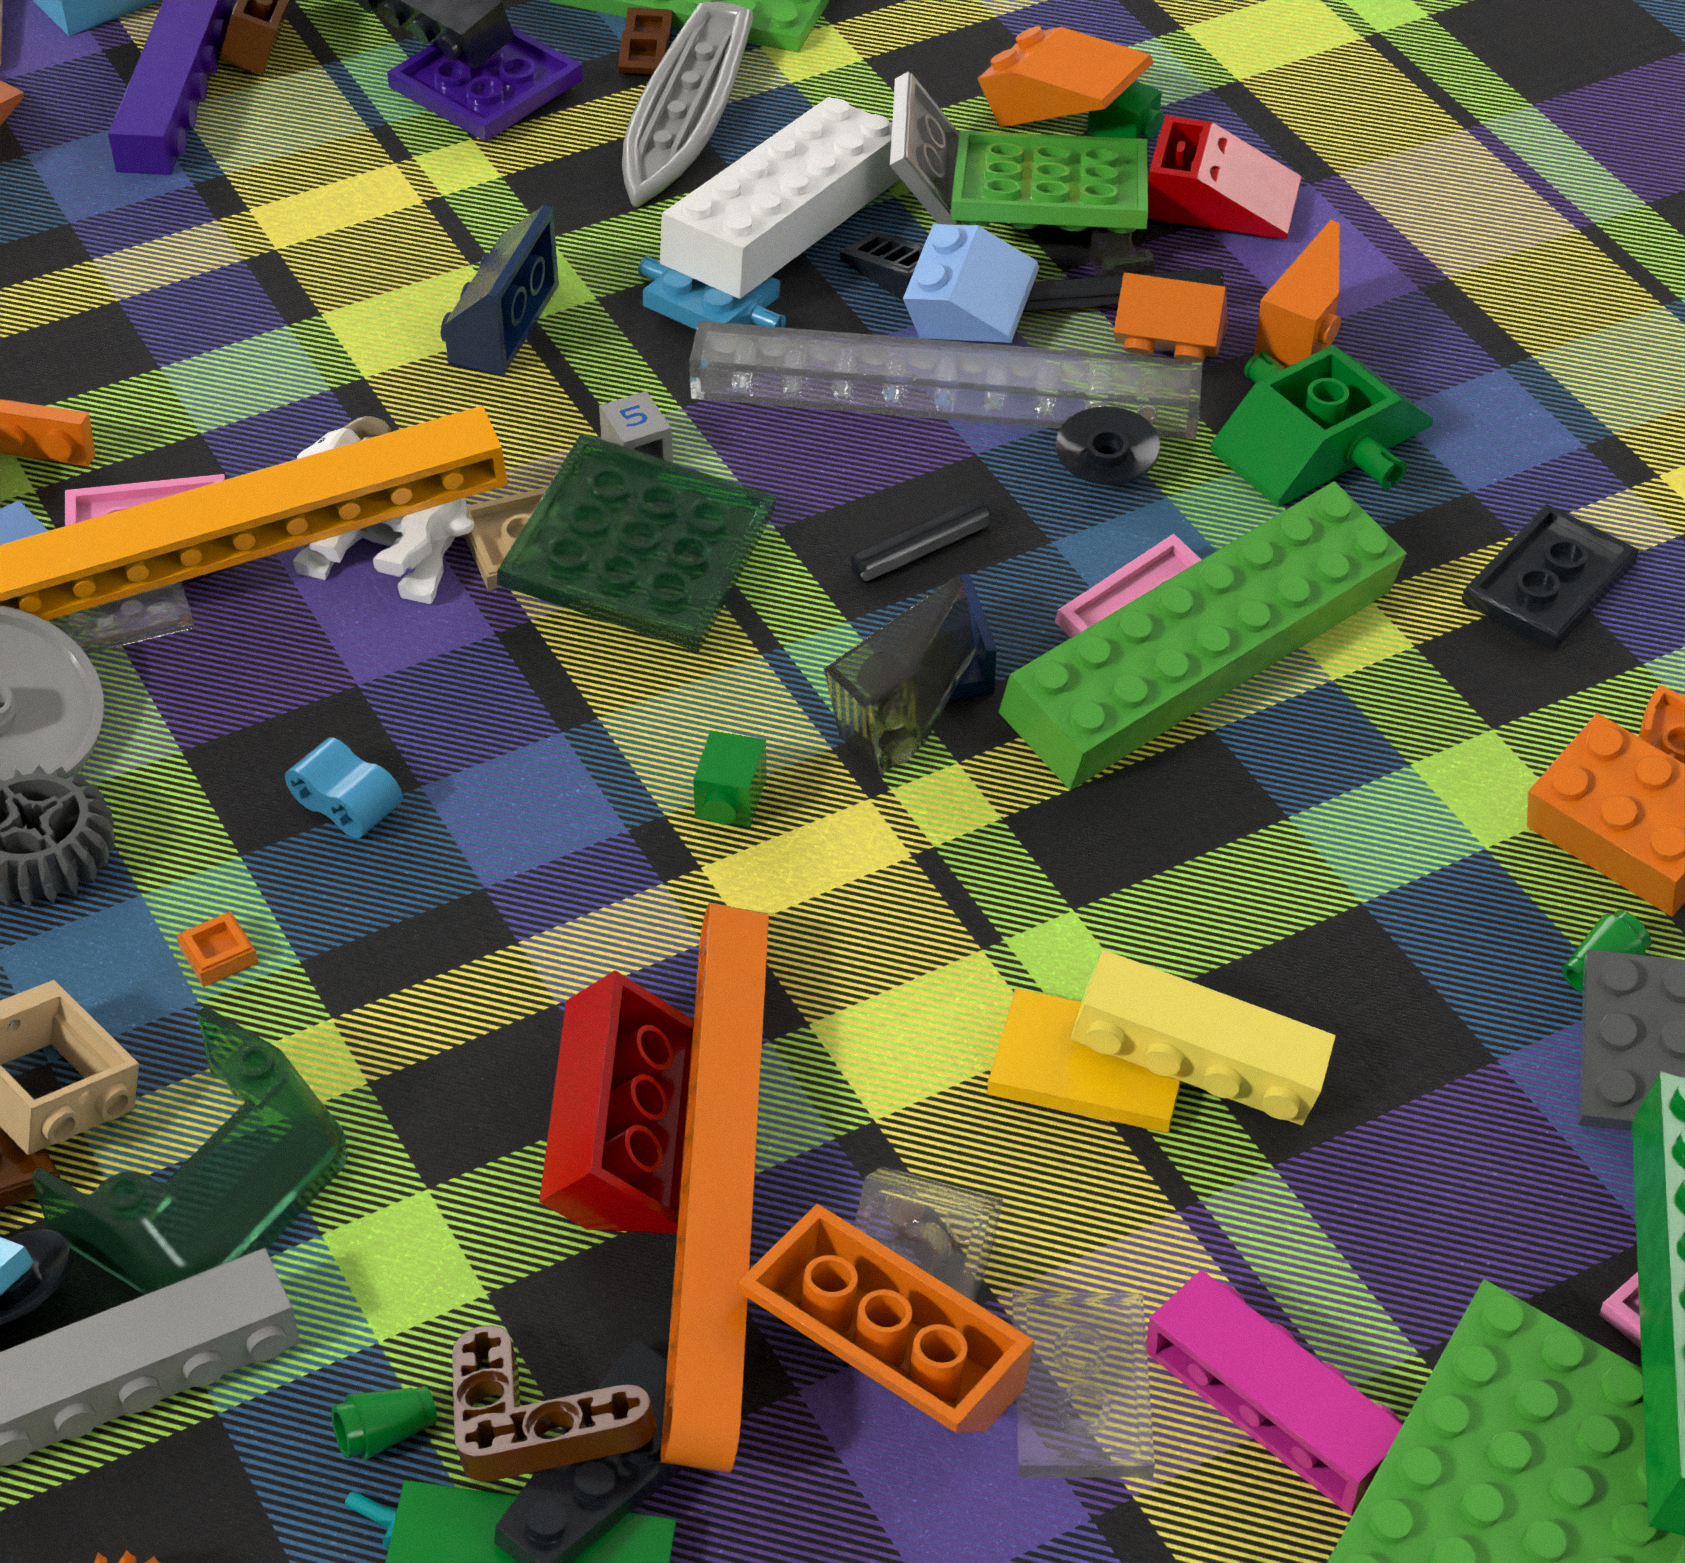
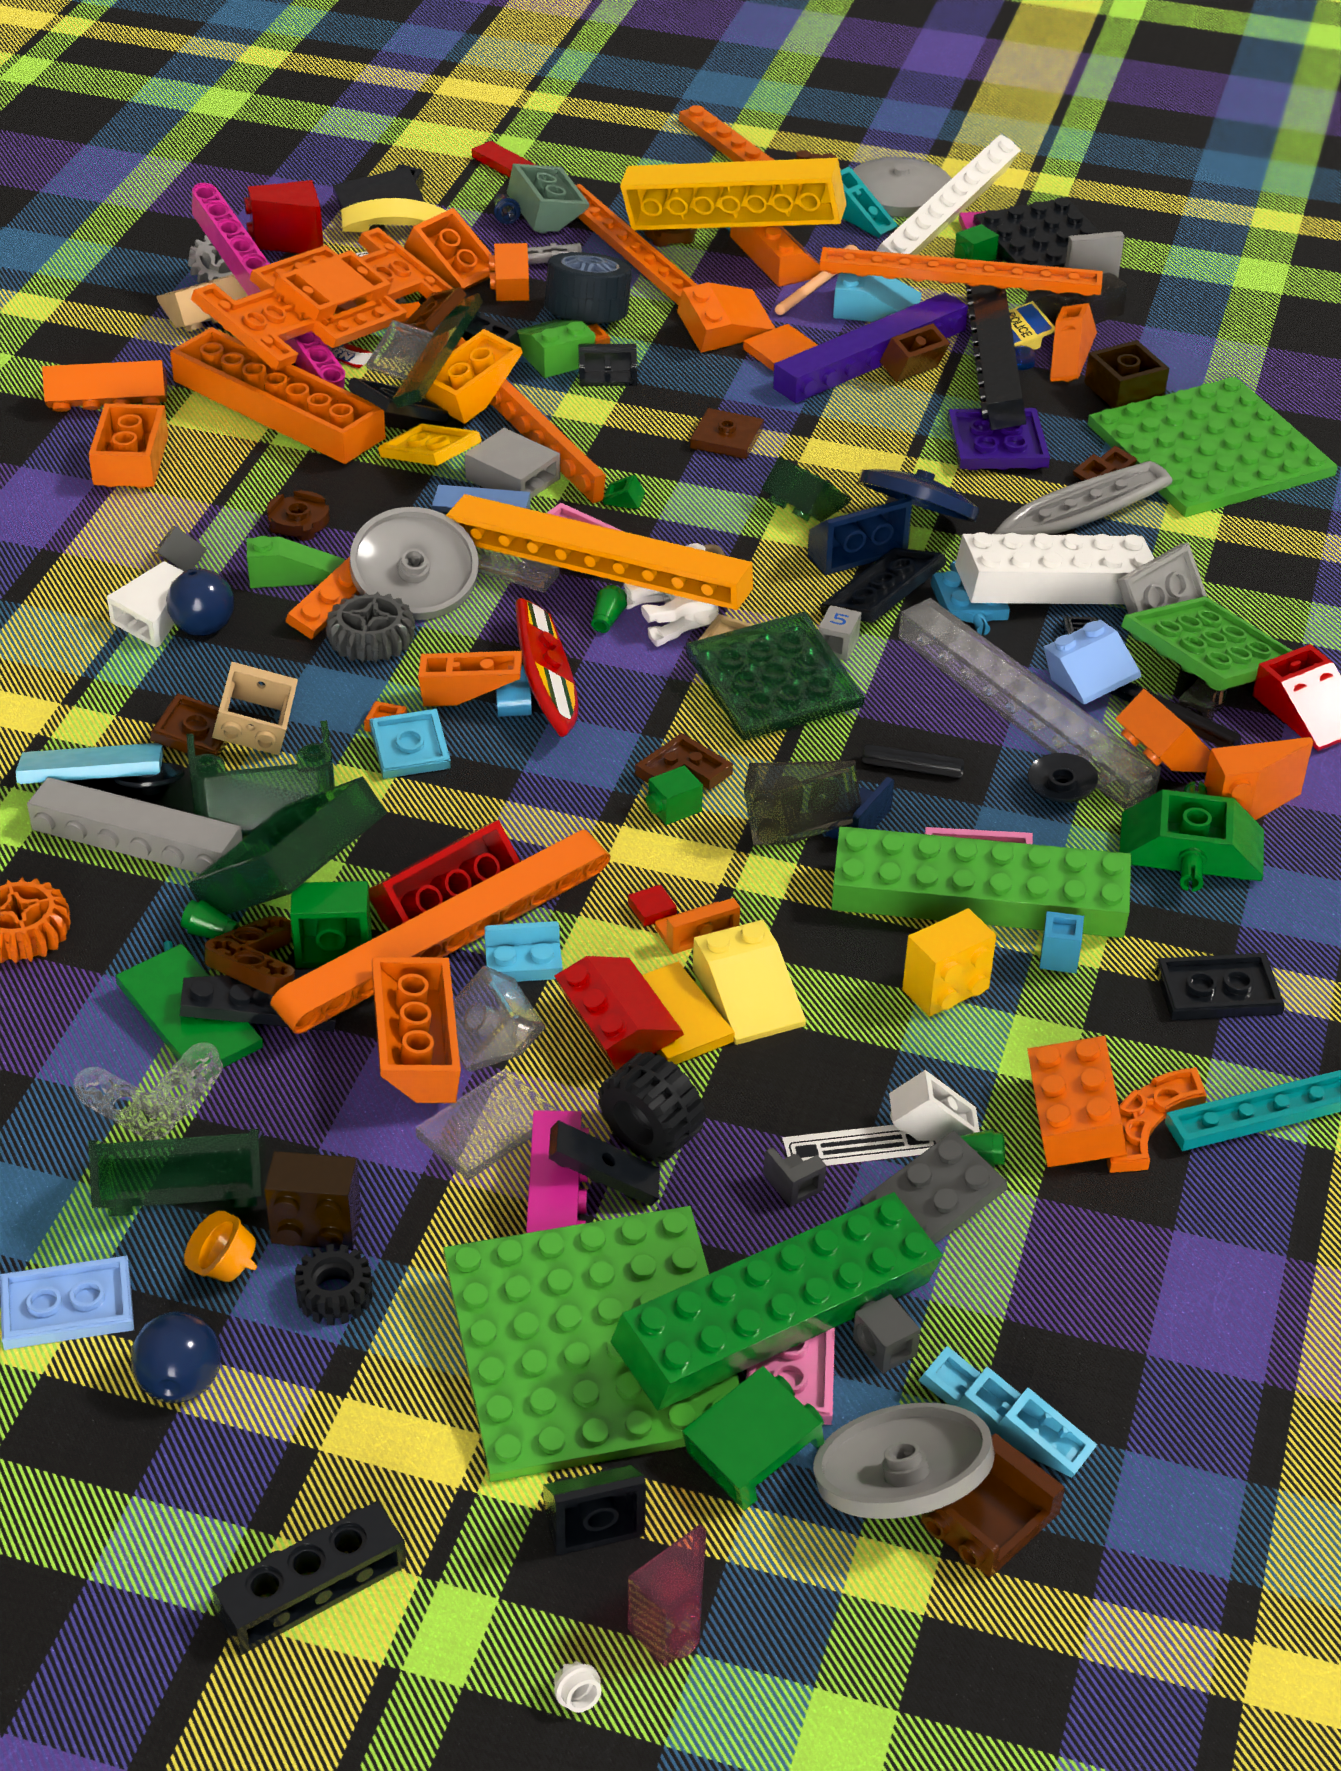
camera: 45 degrees right, 5 degrees down
(65, 112) = (777, 345): none -> orange tile
(118, 426) = (625, 493): none -> green slope
(144, 265) = (727, 433): none -> reddish brown plate
(281, 808) = (459, 677): none -> orange slope
(305, 958) = (410, 743): none -> medium azure tile
(314, 592) = (608, 607): none -> green cone
(353, 723) = (546, 666): none -> red piece
(355, 282) = (803, 492): none -> clear green slope
(412, 1227) = (288, 847): none -> clear green tile
(527, 189) = (922, 491): none -> dark blue dish
(576, 1282) = (329, 920): none -> green brick
(604, 340) = (886, 582): none -> black tile
(673, 722) = (680, 751): none -> reddish brown plate
(828, 1127) = (524, 950): none -> medium azure bracket
(883, 941) = (651, 905): none -> red tile
(967, 924) = (680, 929): none -> orange panel
(1049, 1107) = (617, 1007): none -> red slope
(1058, 75) = (1285, 593): orange slope -> none
(1114, 912) = (747, 981): none -> light yellow slope
(1130, 115) = (1312, 630): green brick -> none
(1203, 1038) = (719, 1033): light yellow brick -> none
(1279, 1193) = (651, 1106): none -> black tyre
(1317, 1313) = (604, 1163): none -> black tile
(1318, 753) = (949, 962): none -> yellow brick
(1376, 640) = (1061, 942): none -> dark azure brick
(1477, 1050) = (856, 1145): none -> white sticker
(1485, 1151) = (793, 1177): none -> dark grey panel
(1511, 948) = (931, 1109): none -> white slope

